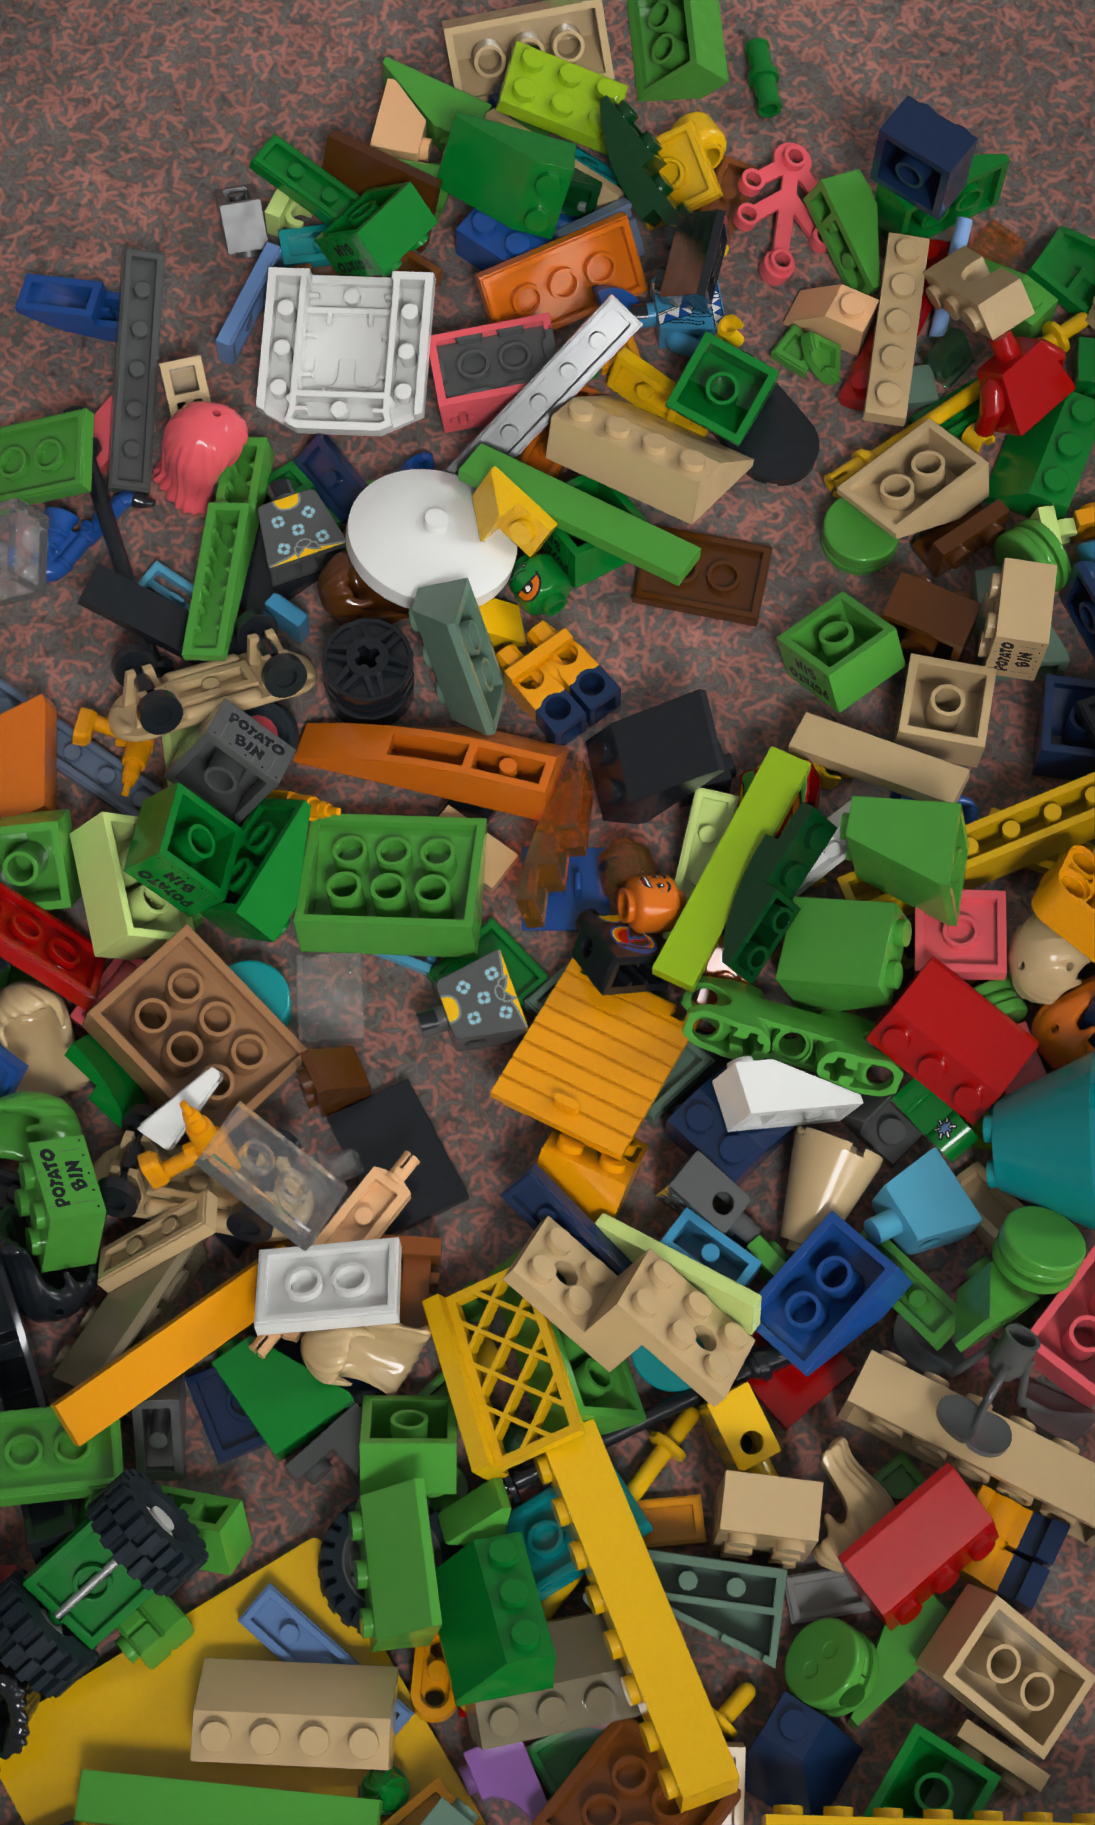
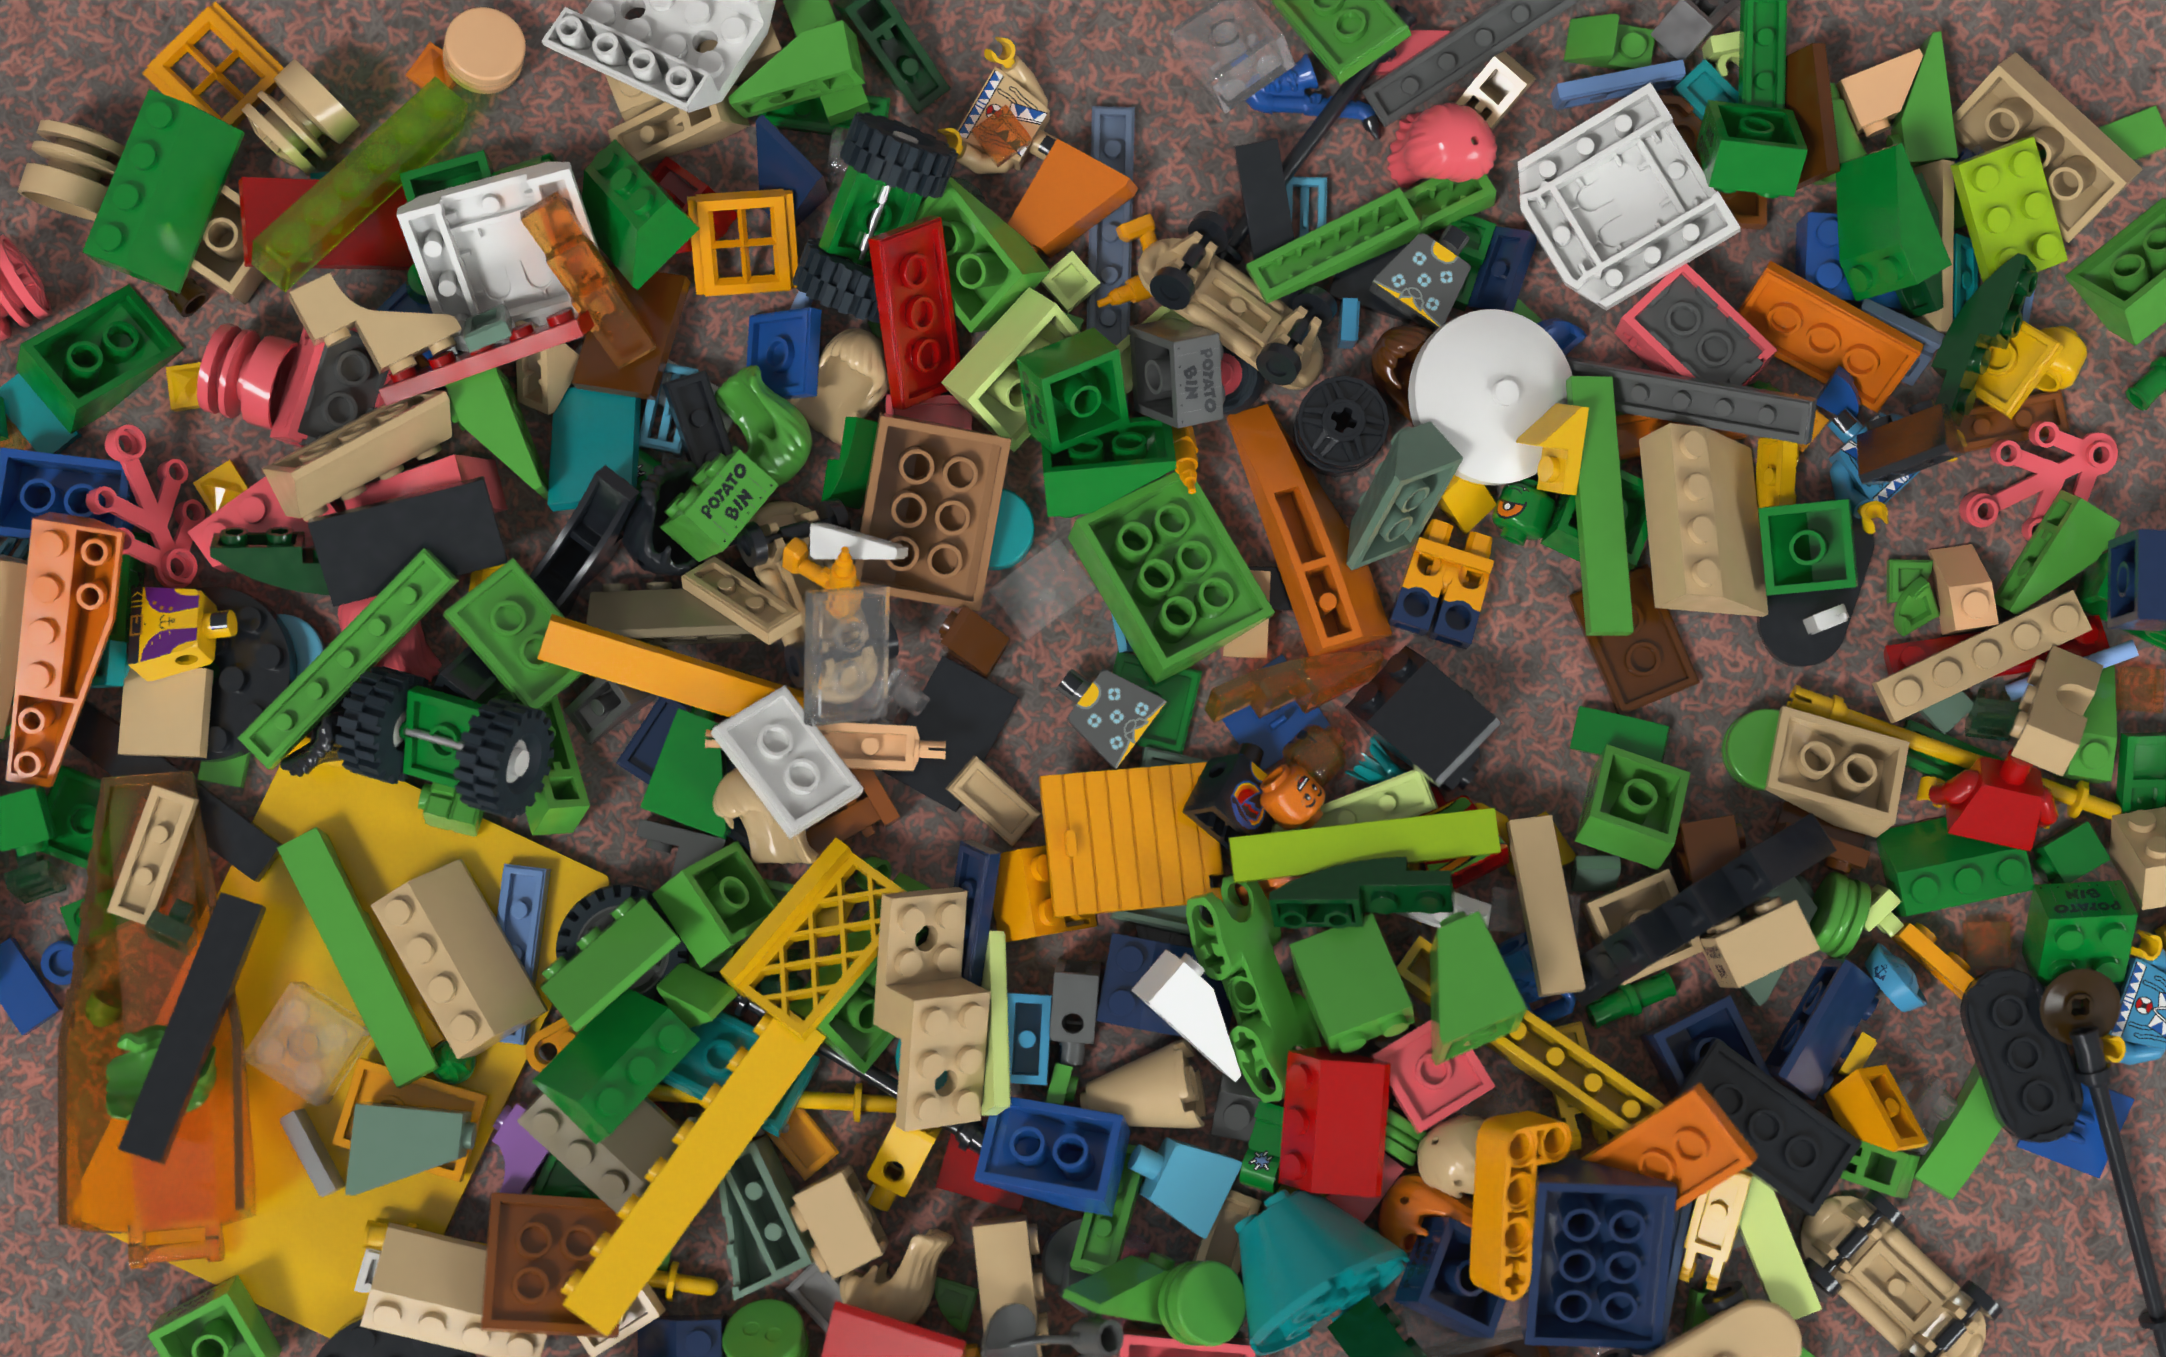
camera: 55 degrees right, 15 degrees up
(87, 801) = (1070, 282): none -> yellowish green tile
(209, 292) = (1608, 45): none -> bright green slope
(481, 1157) = (993, 800): none -> tan tile
(673, 835) = (1373, 771): none -> teal piece
(758, 643) = (1598, 728): none -> green slope
(787, 422) = (1826, 619): none -> white tile
(876, 715) = (1595, 872): none -> sand green tile
(962, 643) = (1702, 906): none -> black arch
(997, 761) = (1630, 999): none -> green pin

